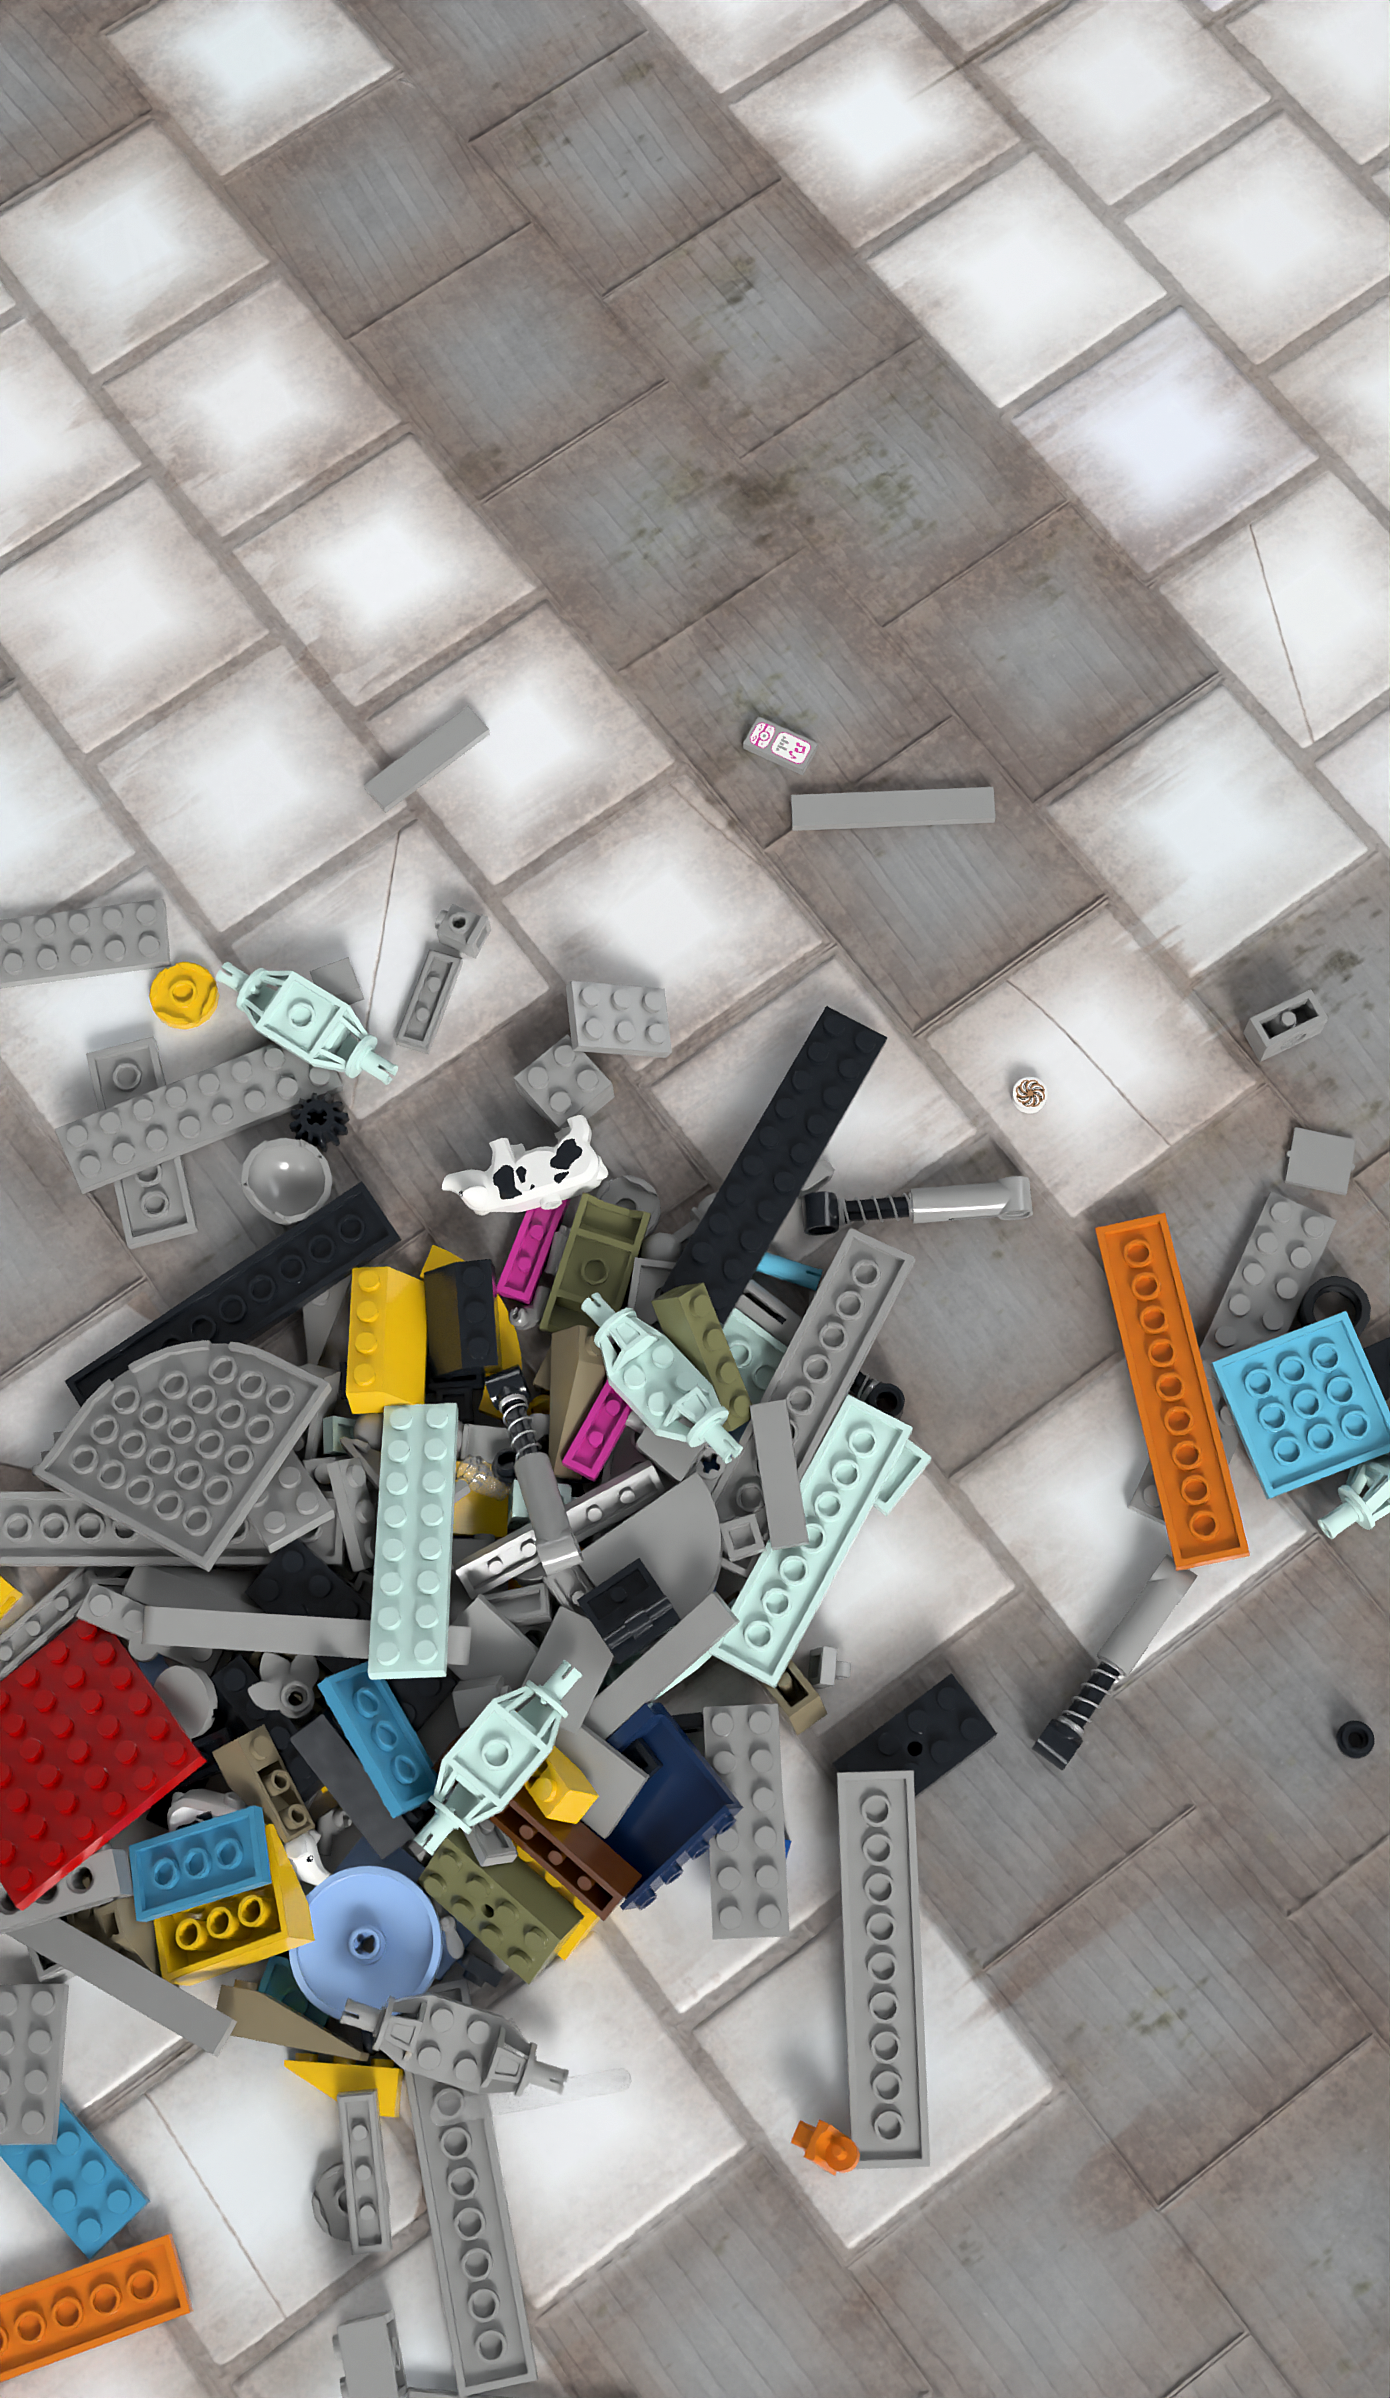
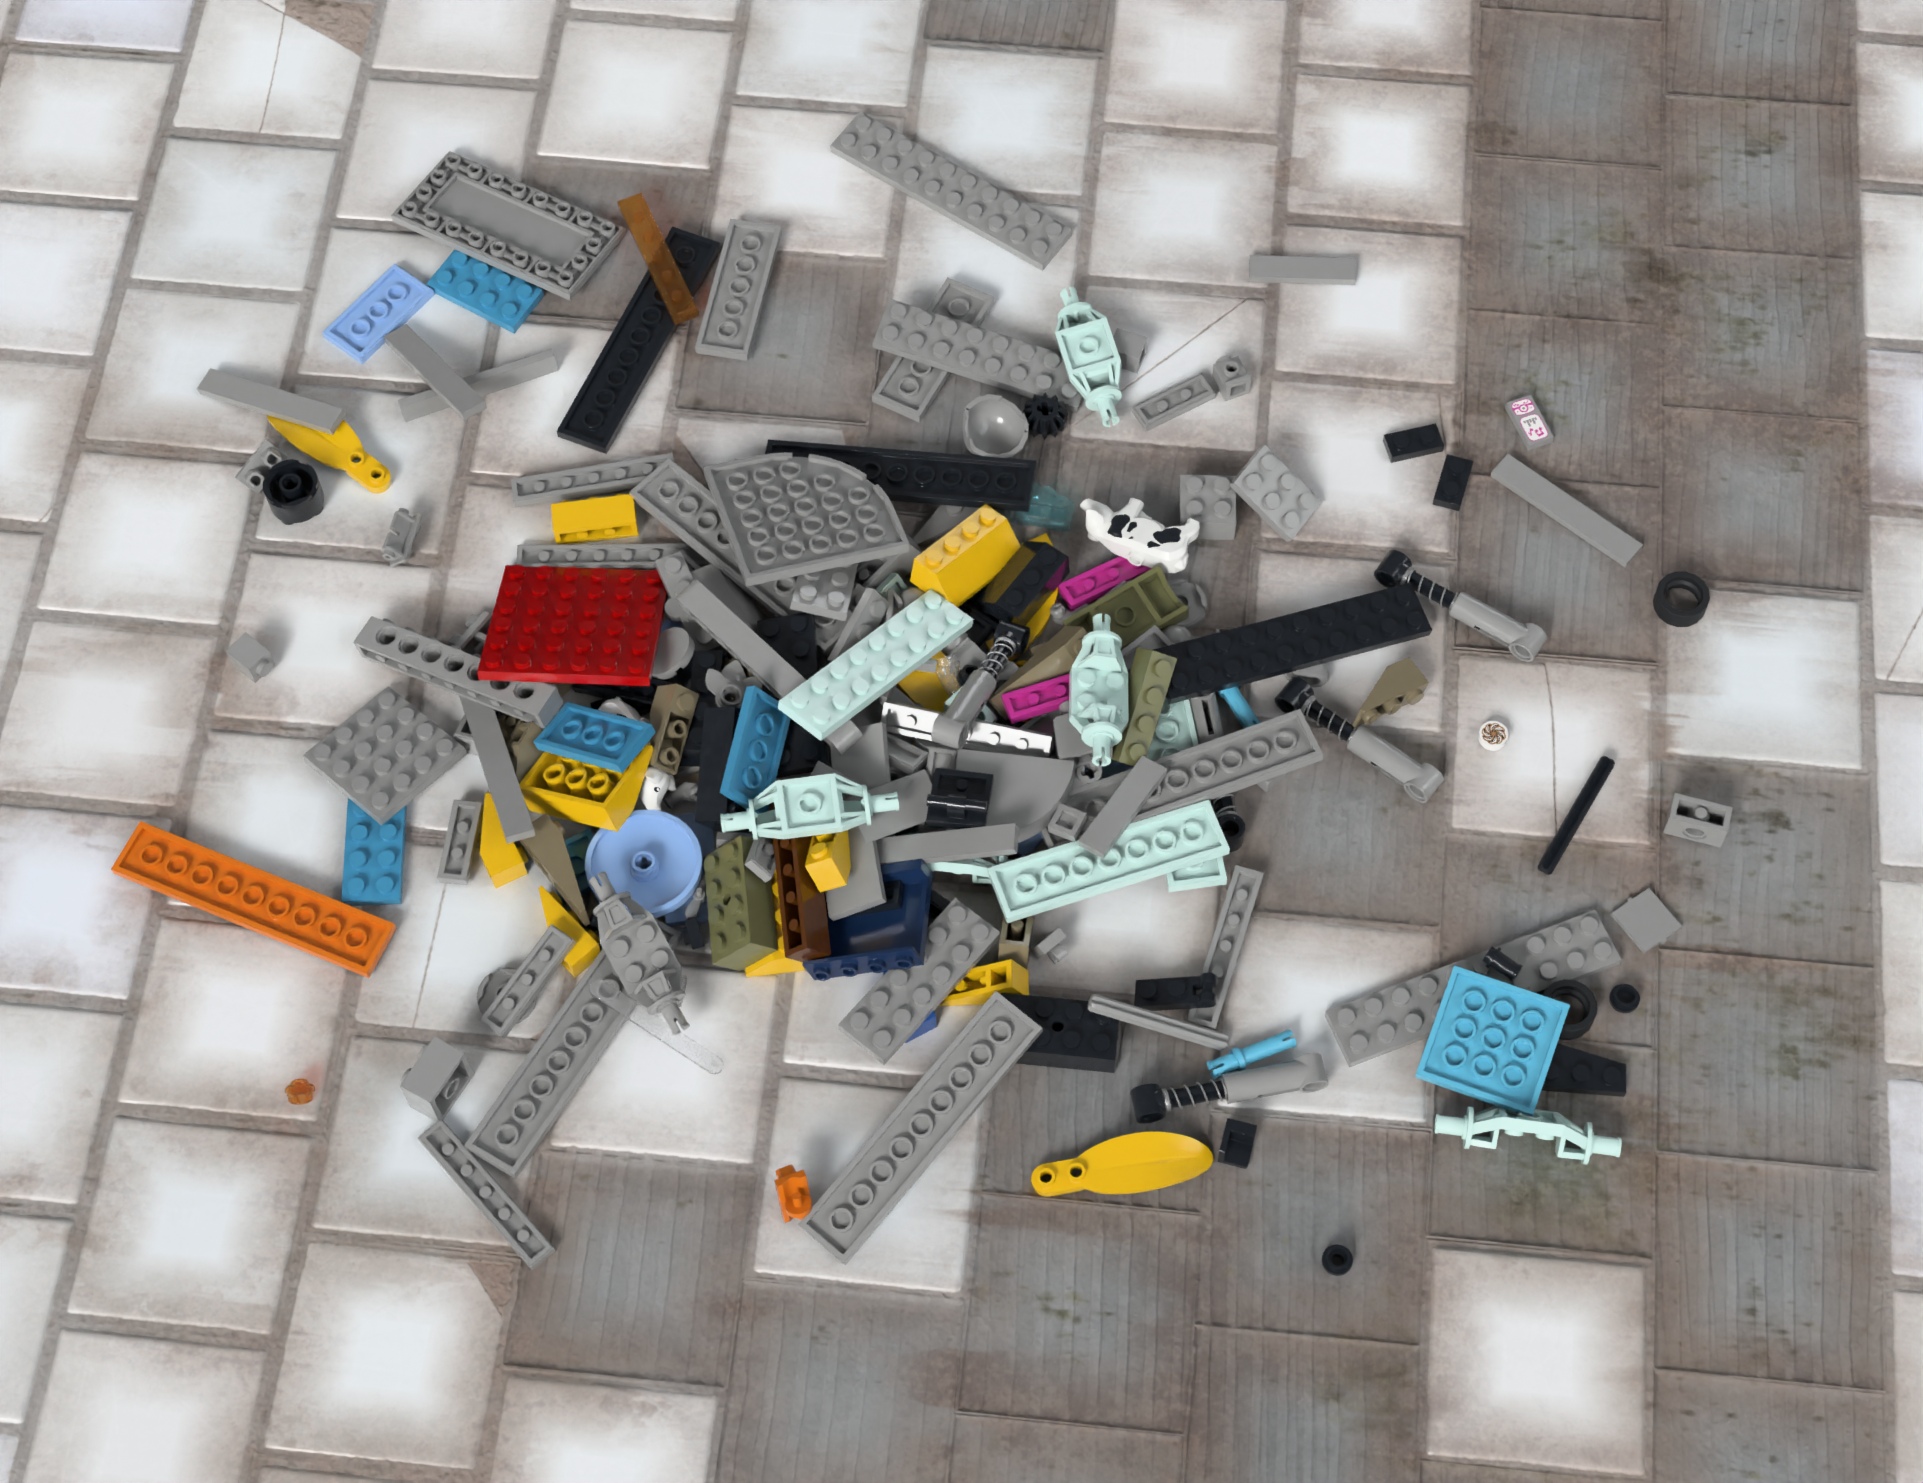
camera: 40 degrees right, 10 degrees down
(152, 2085) = (460, 842): none -> light grey plate
(184, 995) = (1034, 291): yellow tile -> none
(196, 2065) = (500, 859): none -> yellow slope
(413, 1218) = (1047, 510): none -> clear light blue wing
(693, 855) = (1413, 443): none -> black plate
(765, 866) = (1452, 482): none -> black plate
(812, 1757) = (985, 980): none -> yellow slope
(903, 1130) = (1398, 686): none -> dark tan slope
(971, 975) = (1521, 639): none -> light grey piece
(984, 1612) = (1176, 993): none -> black plate
(985, 1525) = (1228, 940): none -> light grey plate
(999, 1659) = (1157, 1022): none -> light grey axle
(1076, 790) = (1688, 582): none -> black tyre
(1096, 1822) = (1127, 1165): none -> yellow plant
(1097, 1621) = (1240, 1058): none -> medium azure pin
(1169, 1709) = (1237, 1143): none -> black panel
(1171, 1393) = (1413, 965): orange plate -> none
(1172, 1111) = (1576, 815): none -> black axle
(1246, 1320) = (1502, 963): none -> black pin
(1370, 1255) = (1624, 998): none -> black plate

